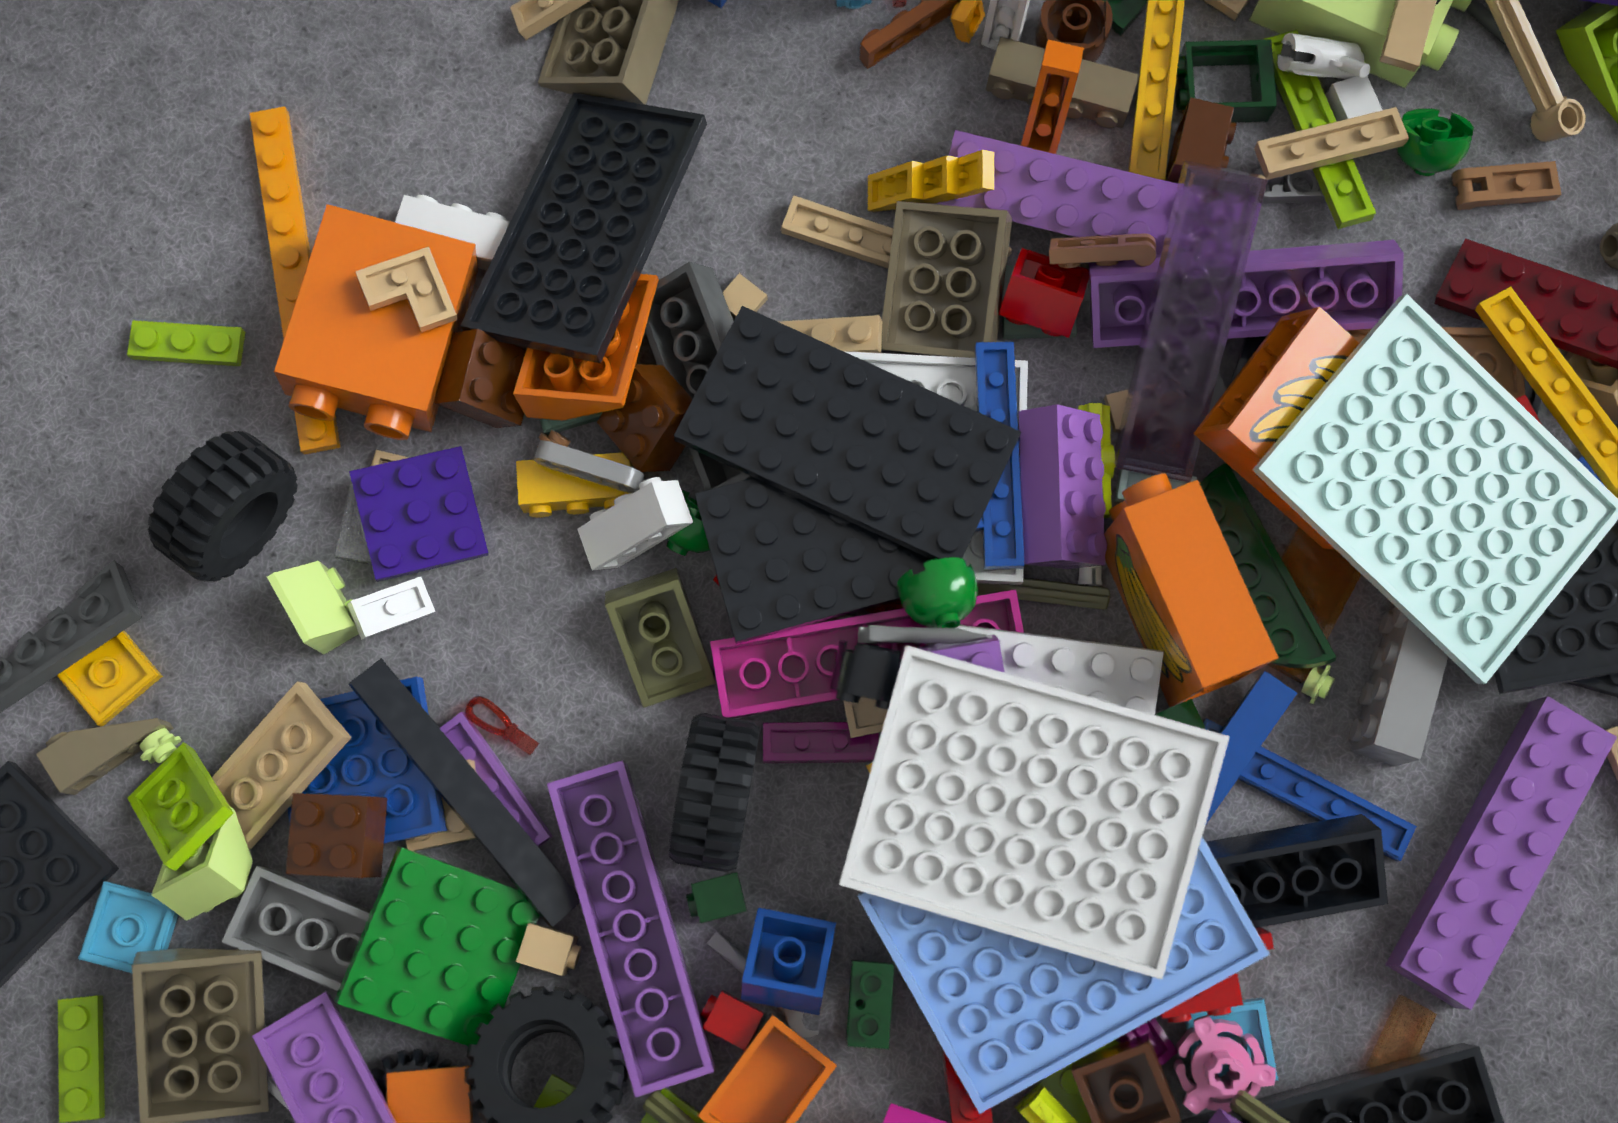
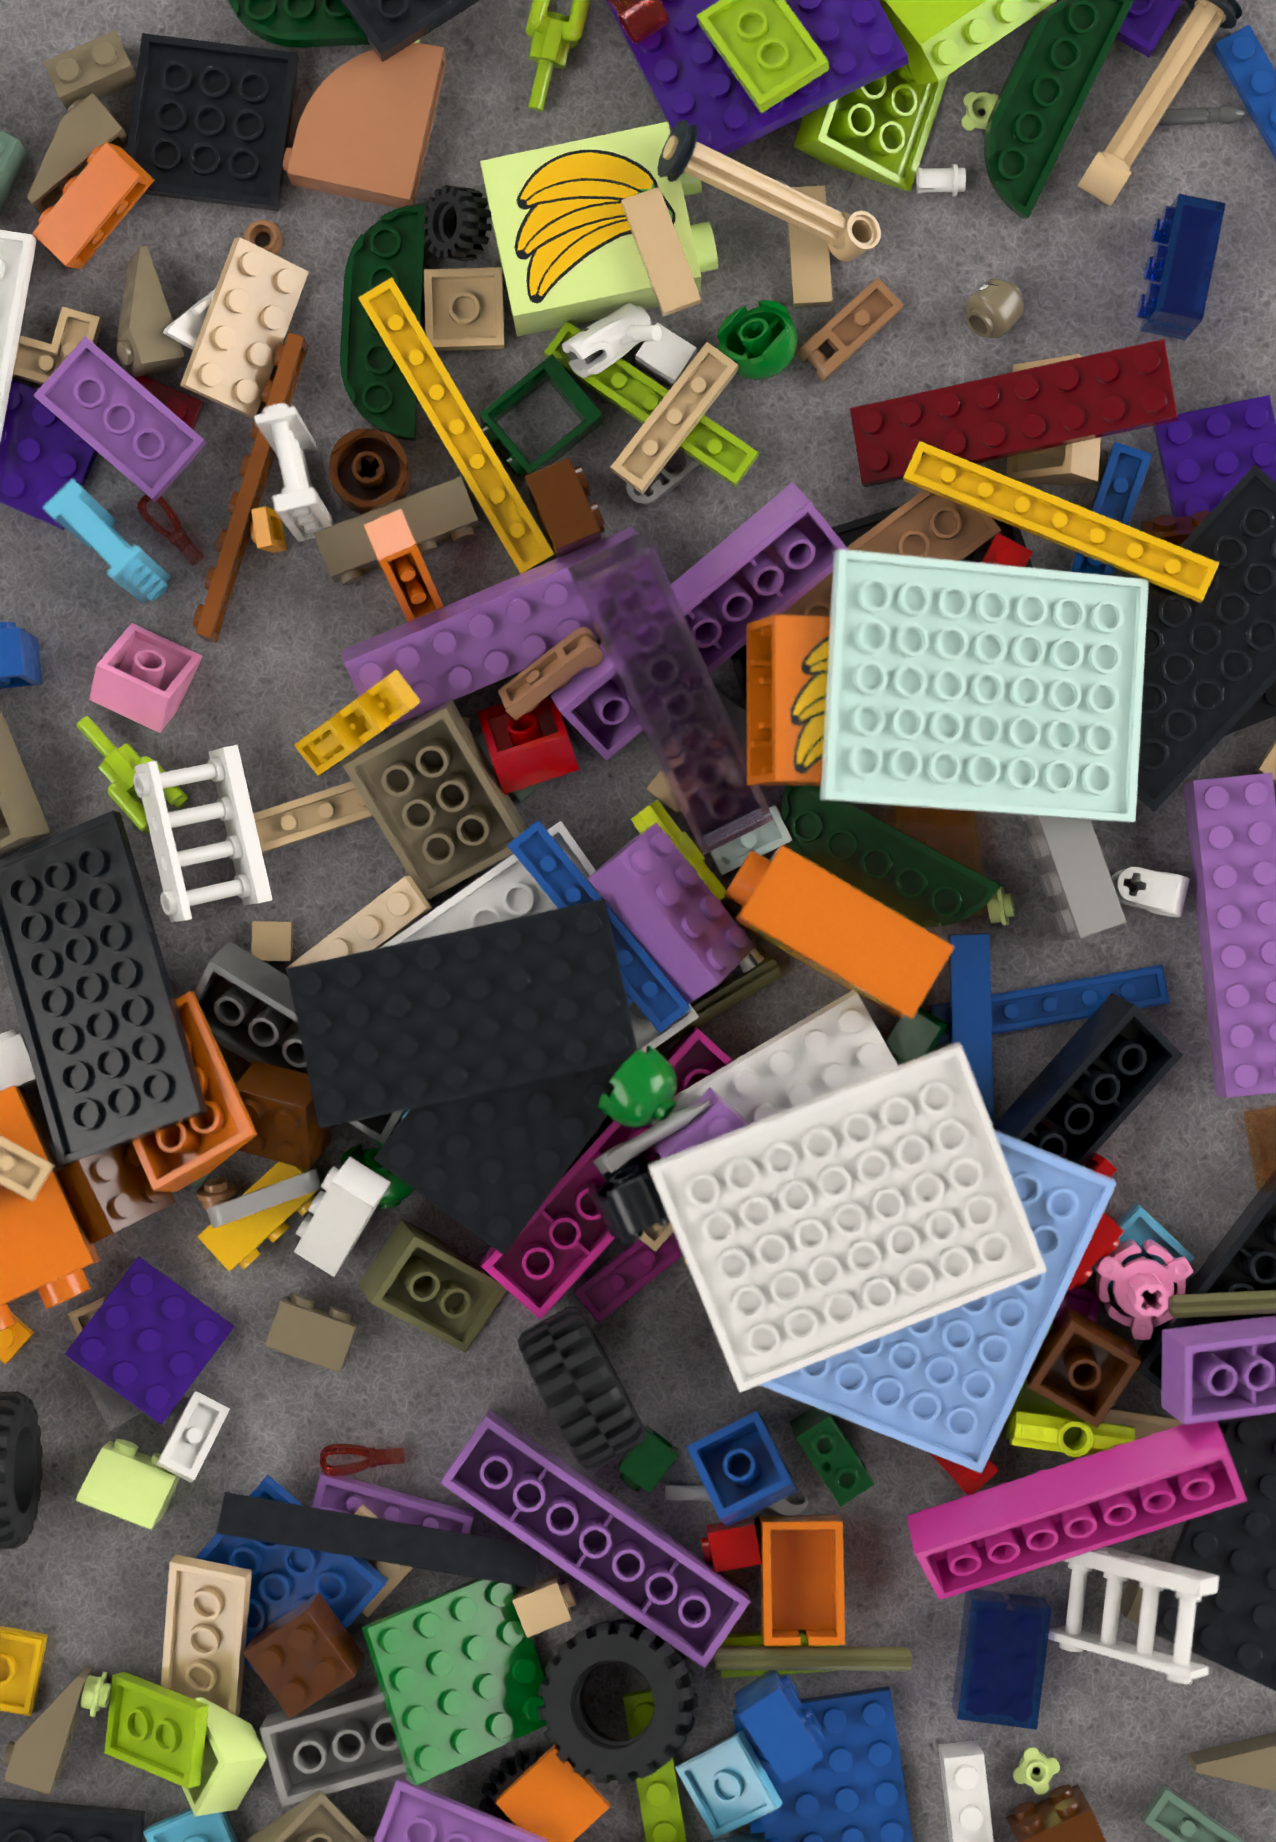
camera: 40 degrees left, 10 degrees up
(541, 601) = (312, 1332): none -> dark tan brick
(734, 109) = (120, 771): none -> lime plant
(789, 179) = (231, 807): none -> white fence
(797, 50) = (144, 677): none -> bright pink slope
(1452, 763) = (1156, 890): none -> white piece
(1507, 119) = (809, 261): none -> tan tile

